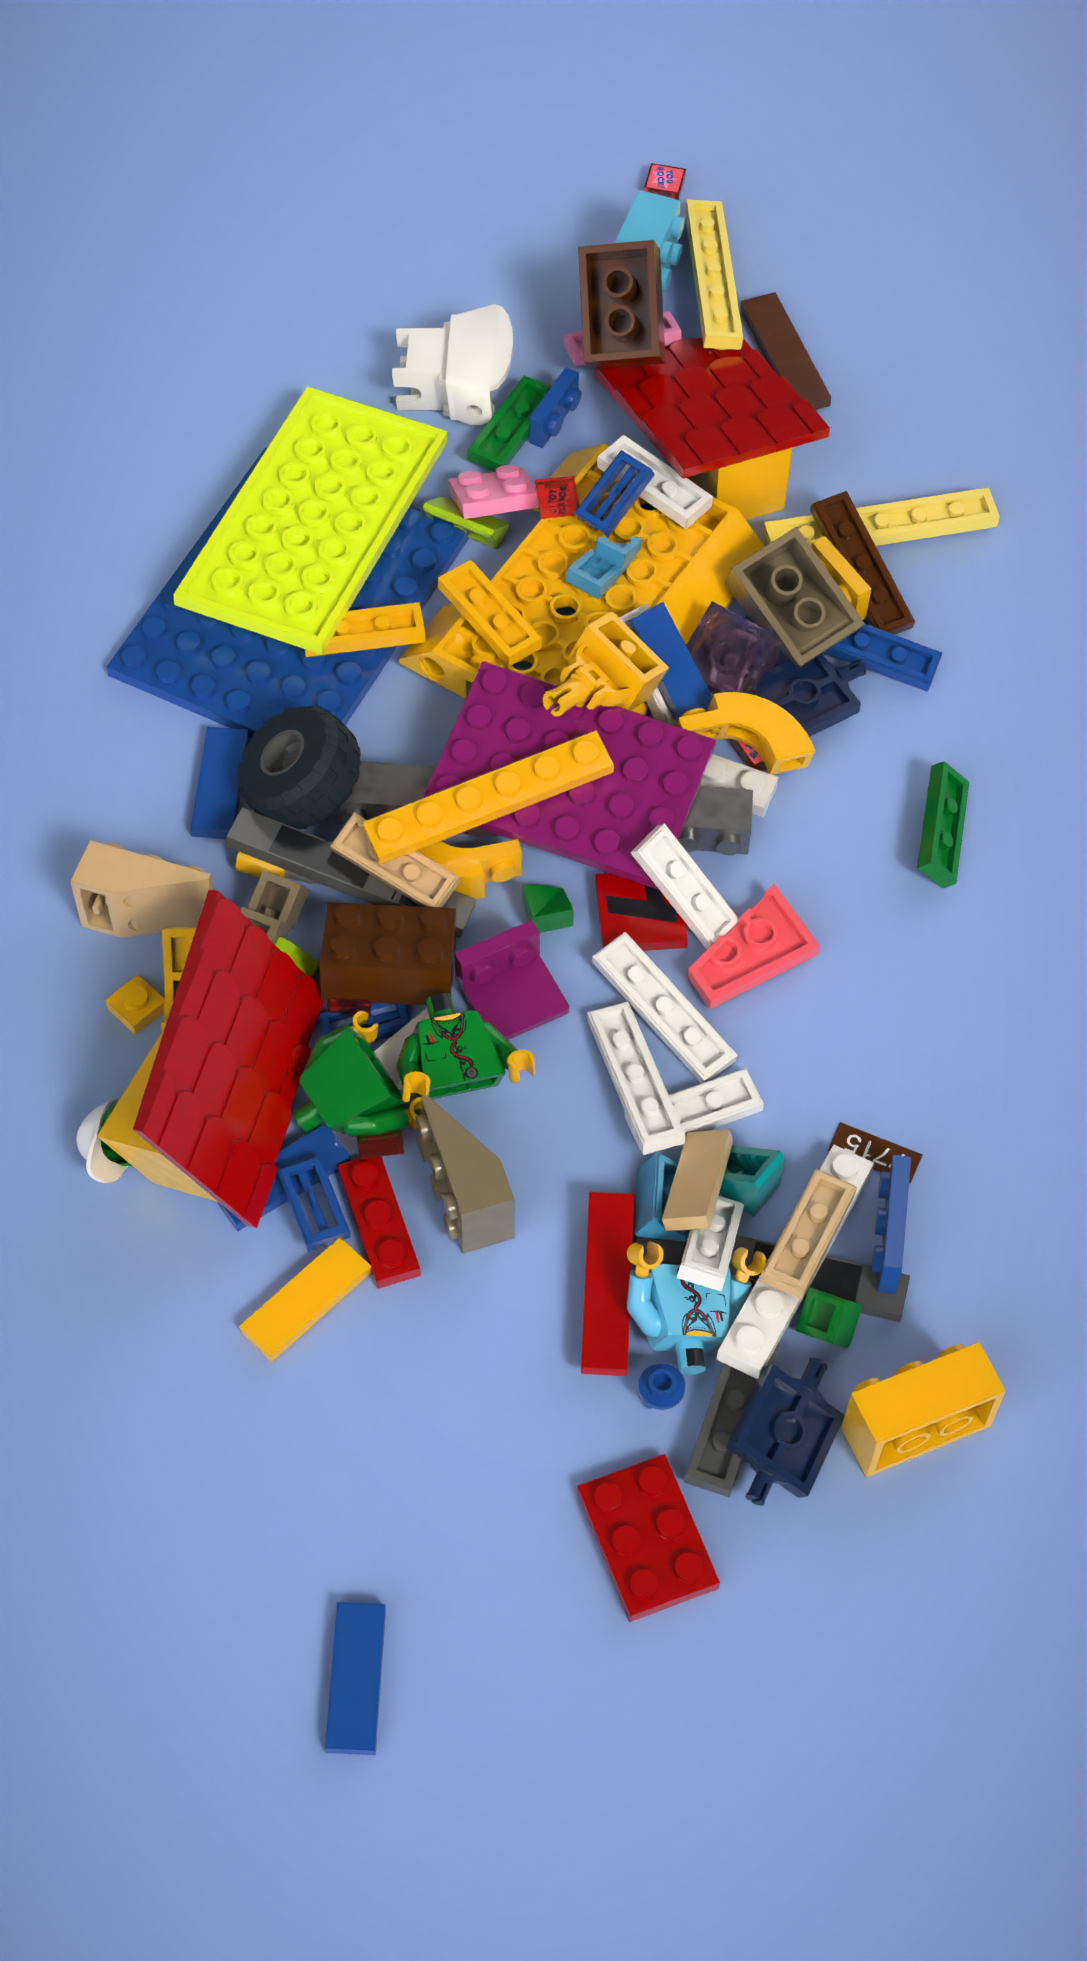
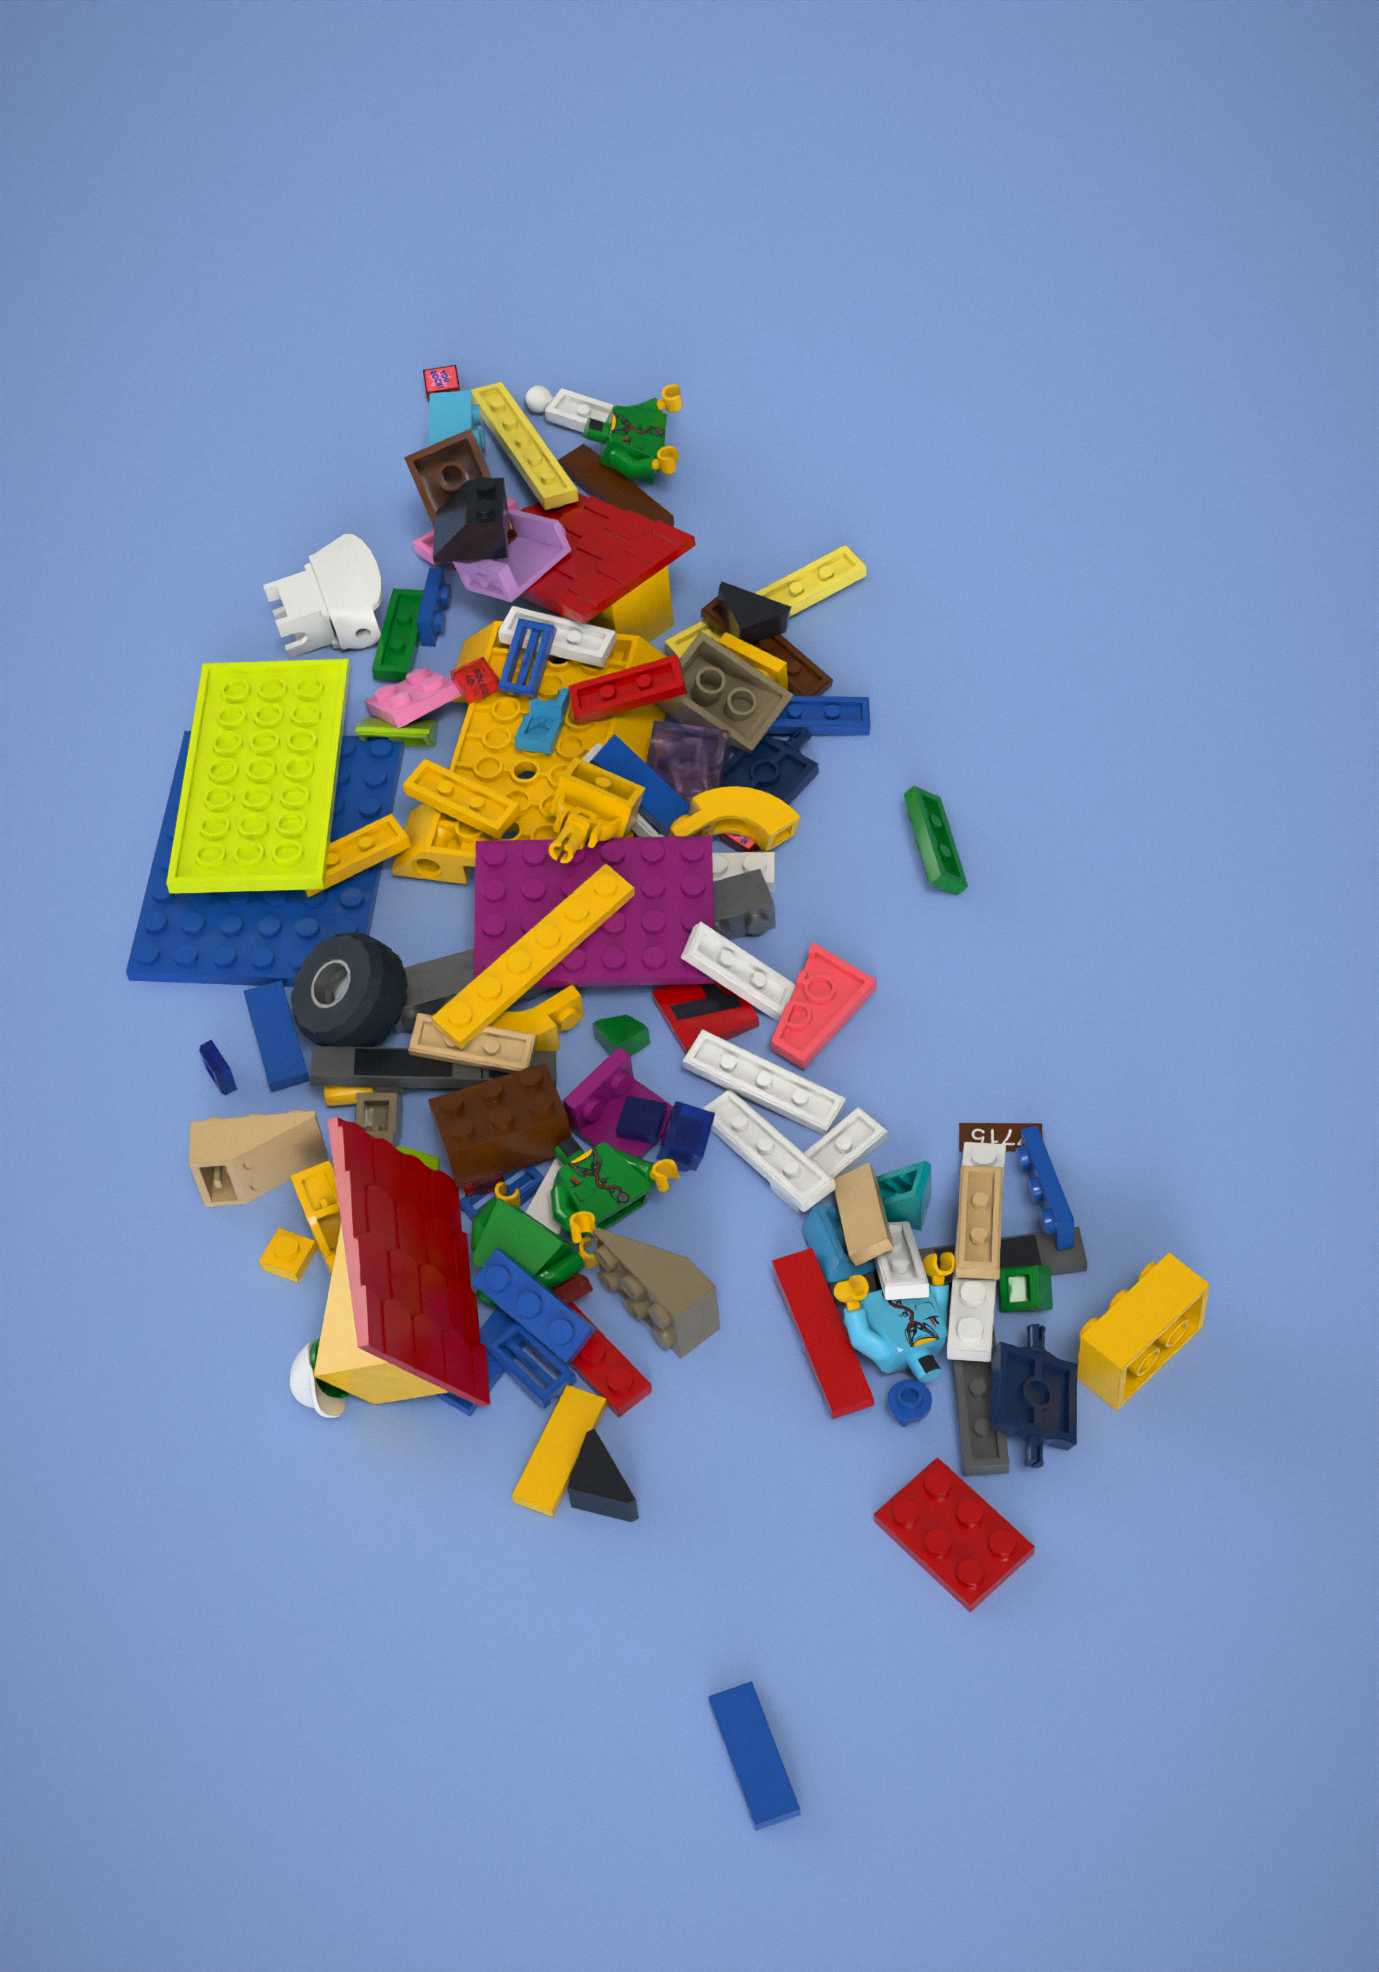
camera: 15 degrees left, 5 degrees down
(148, 794) = (217, 1068): none -> clear blue tile
(324, 1346) = (598, 1484): none -> black slope
(338, 1147) = (533, 1305): none -> blue plate
(527, 1000) = (641, 1120): none -> clear blue tile
(560, 1034) = (686, 1136): none -> clear blue brick
(619, 337) = (473, 523): none -> black slope
(652, 393) = (534, 552): none -> lavender panel
(698, 560) = (627, 689): none -> red plate
(781, 256) = (566, 407): none -> white plate
(827, 303) = (635, 437): none -> green torso
(856, 528) = (750, 614): none -> black slope

